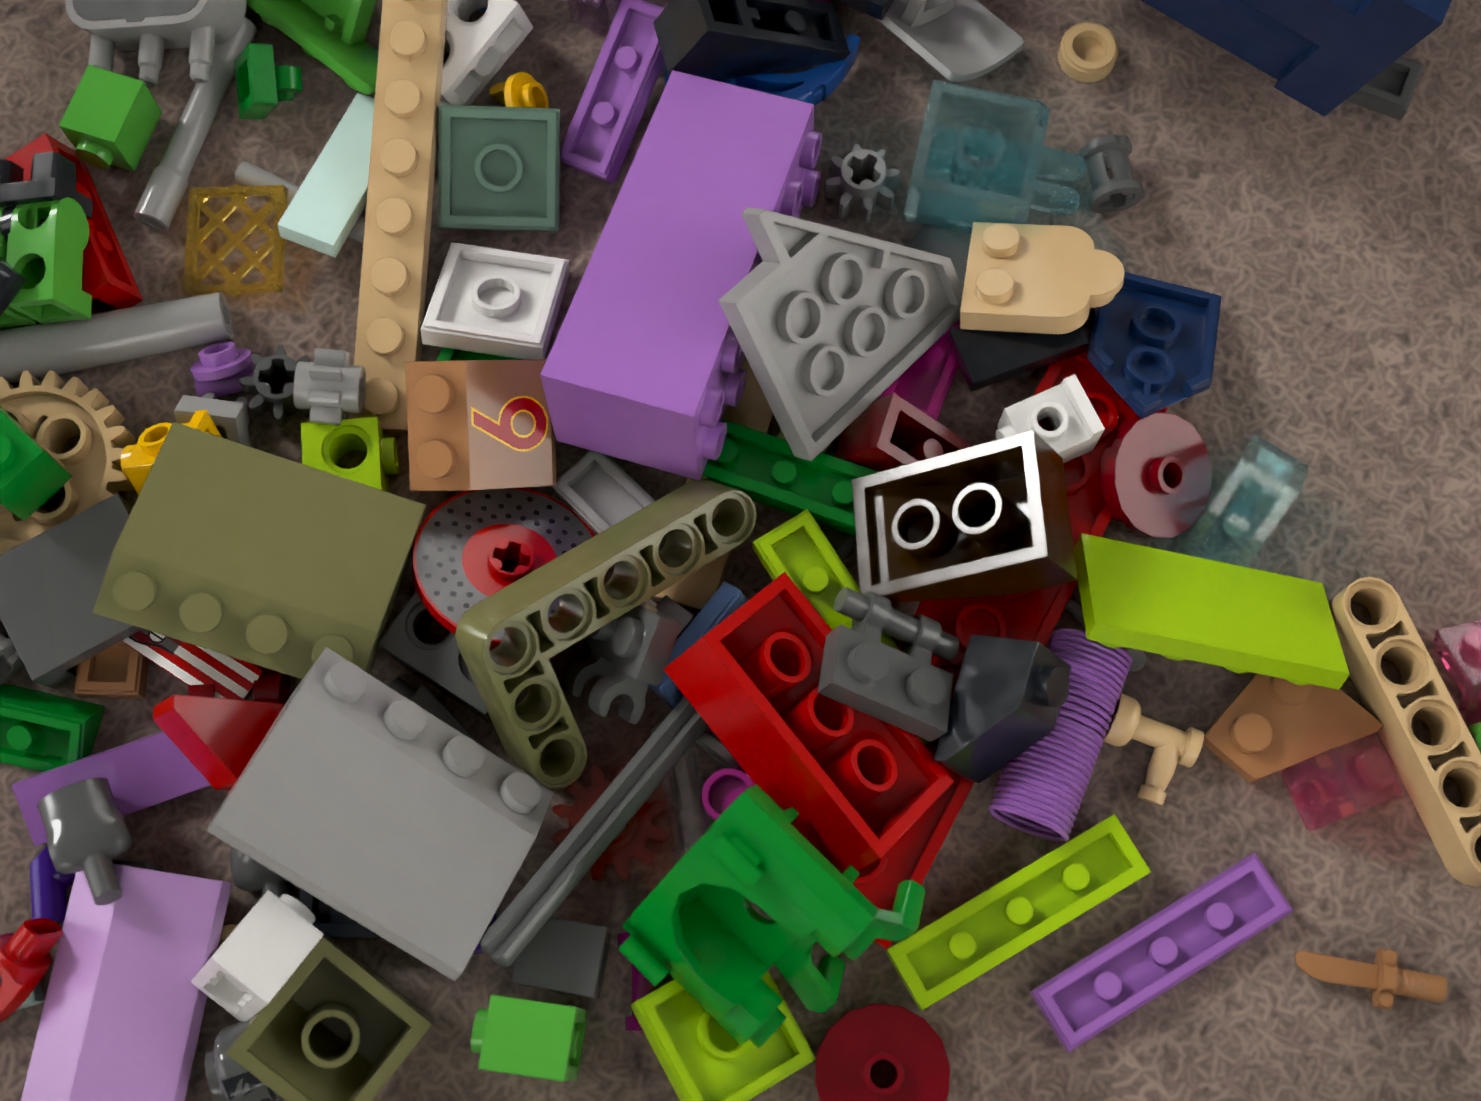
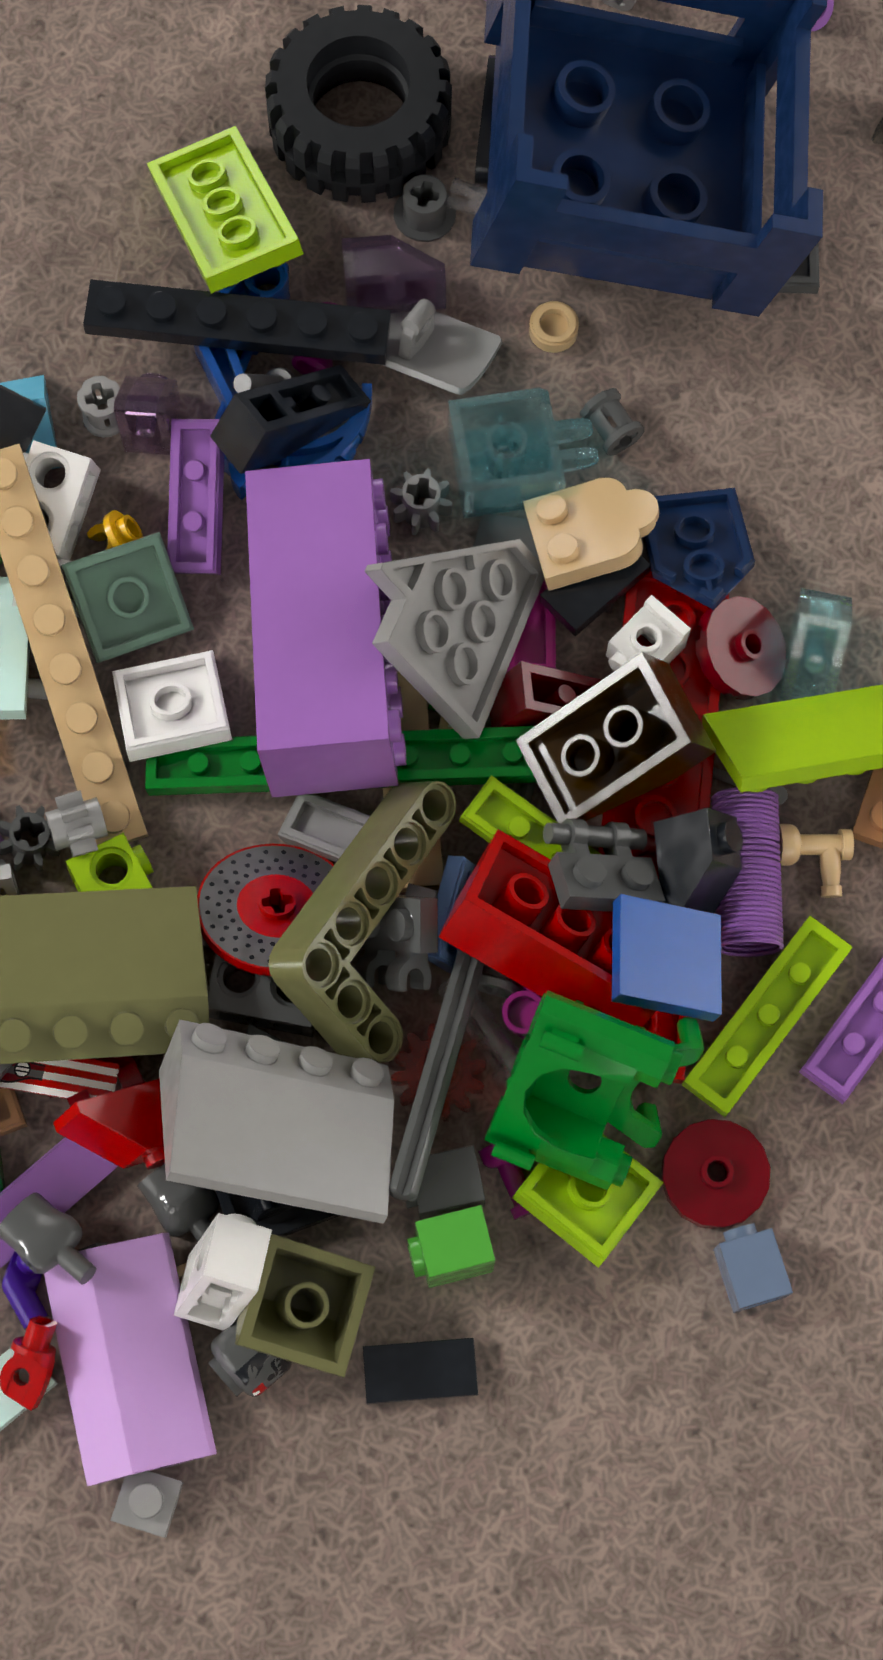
camera: 25 degrees left, 0 degrees up
(478, 425) = (209, 807): medium nougat slope -> none
(917, 801) = (666, 958): none -> tile

